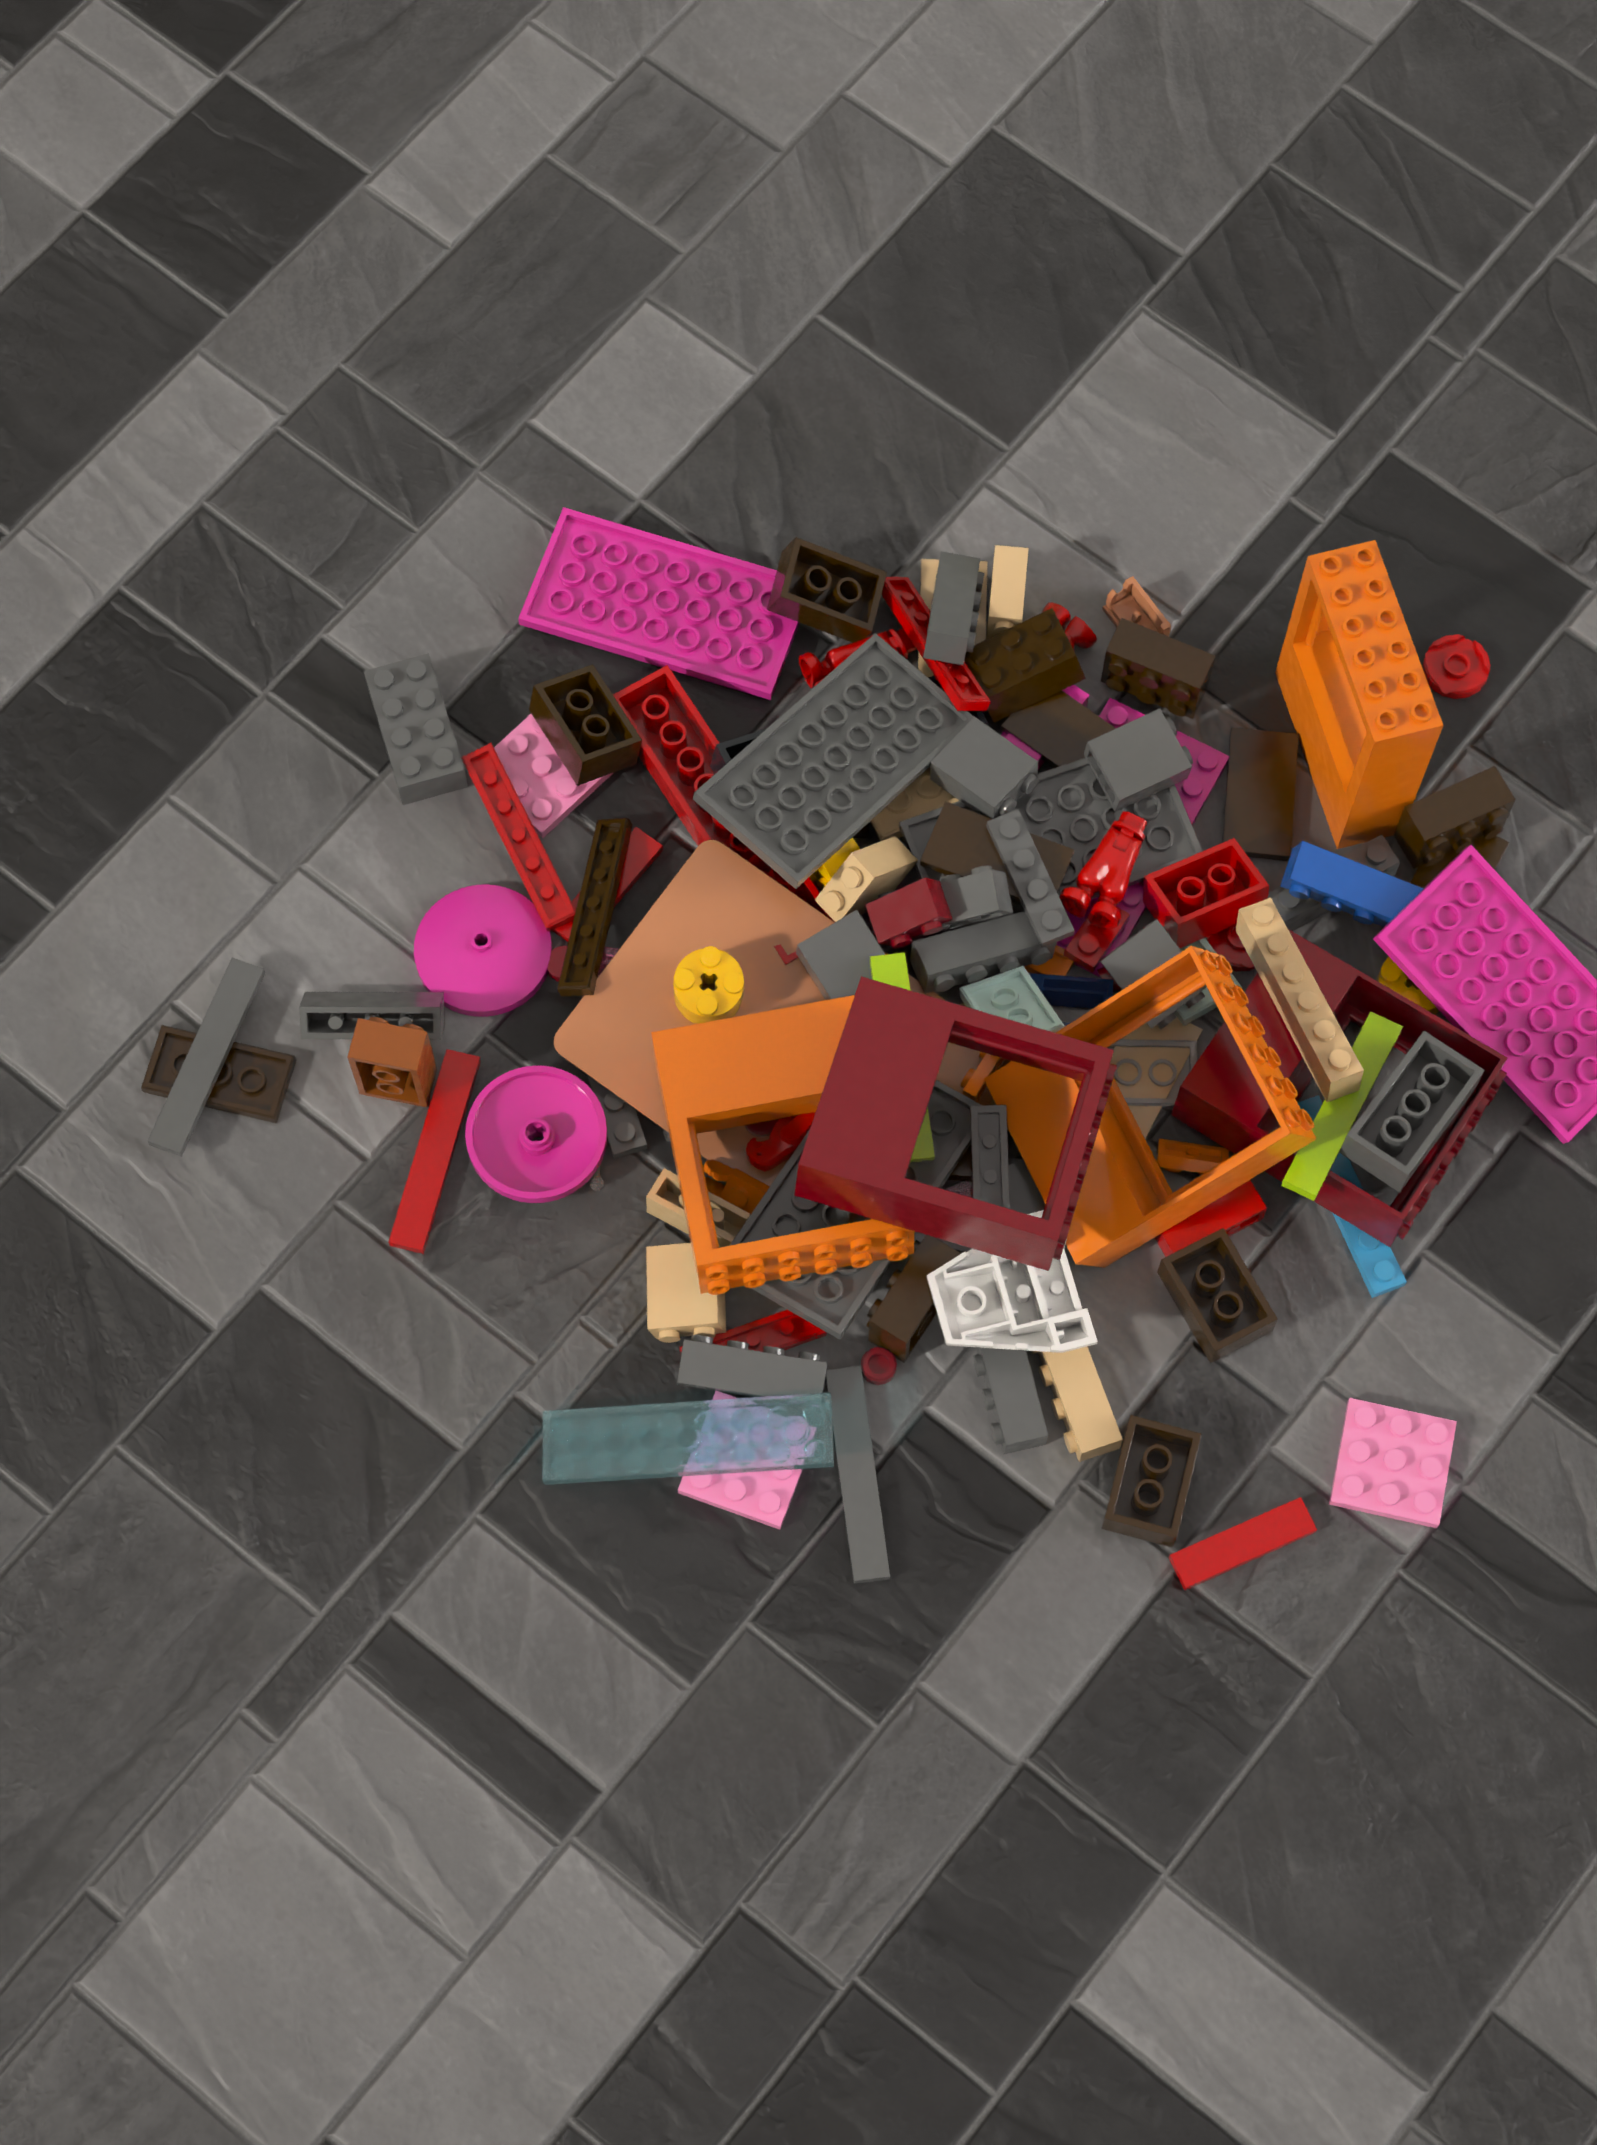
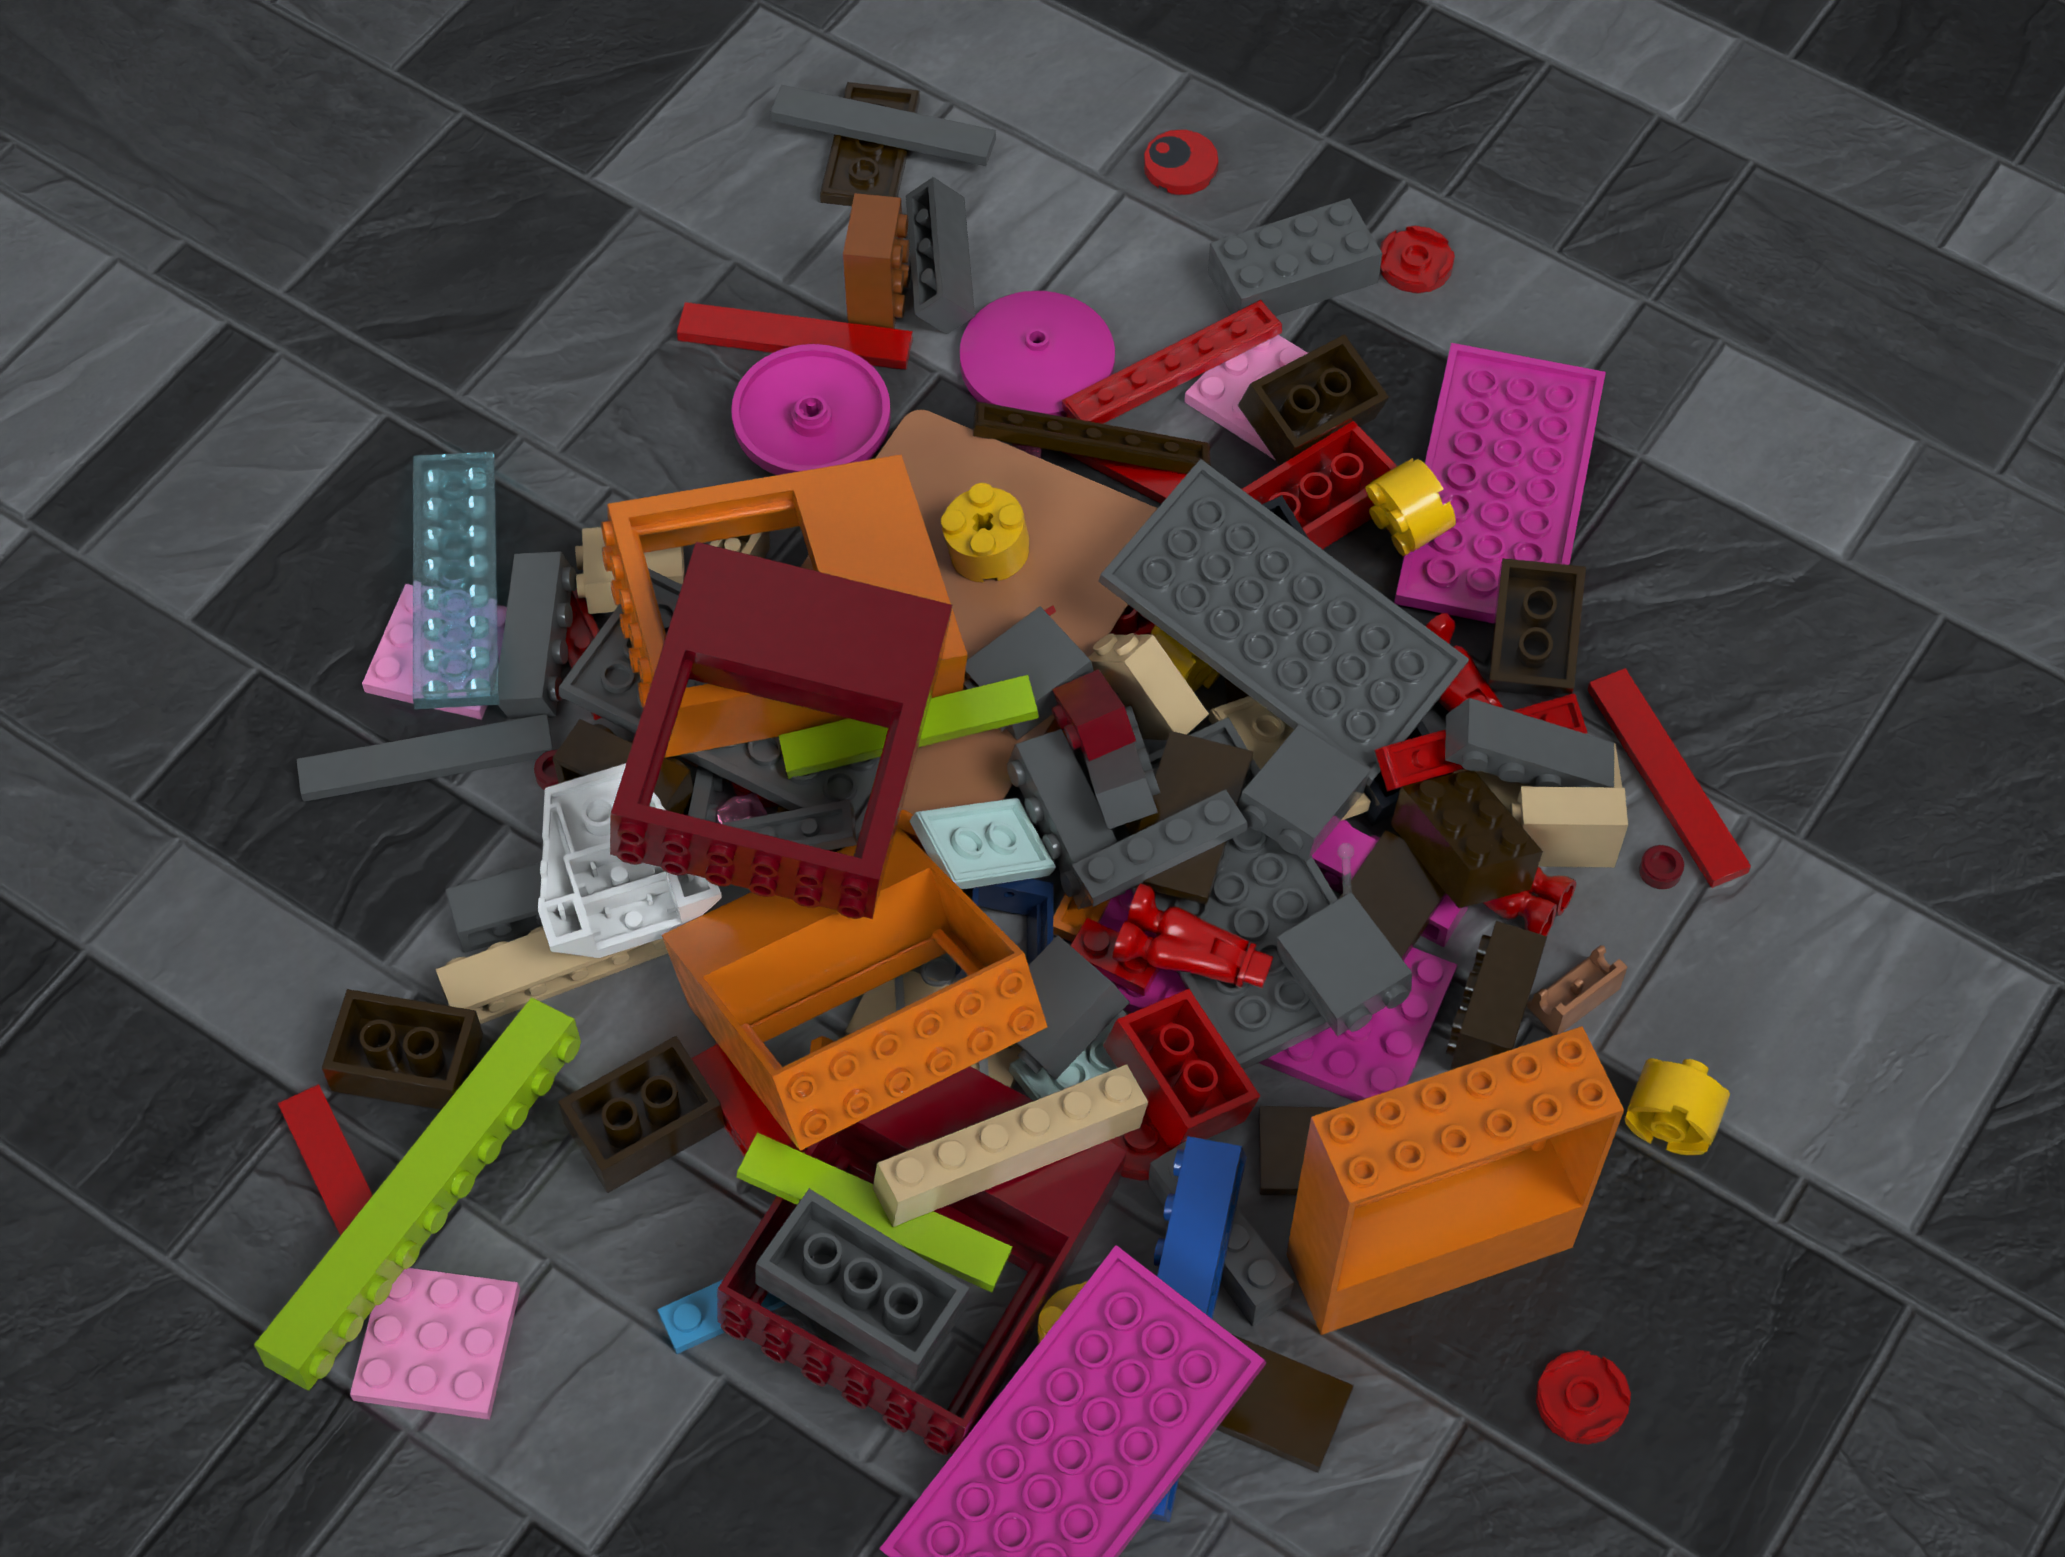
camera: 85 degrees right, 10 degrees down
(278, 811) = (1180, 161): none -> red tile
(414, 633) = (1416, 259): none -> red tile
(704, 663) = (1410, 506): none -> yellow brick
(951, 528) = (1669, 778): none -> red tile
(1034, 541) = (1661, 867): none -> dark red tile
(1058, 759) = (1345, 852): none -> clear hinge
(1247, 563) = (1677, 1105): none -> yellow brick
(1280, 1463) = (418, 1195): none -> lime brick
(1454, 818) = (1326, 1370): dark brown brick -> none

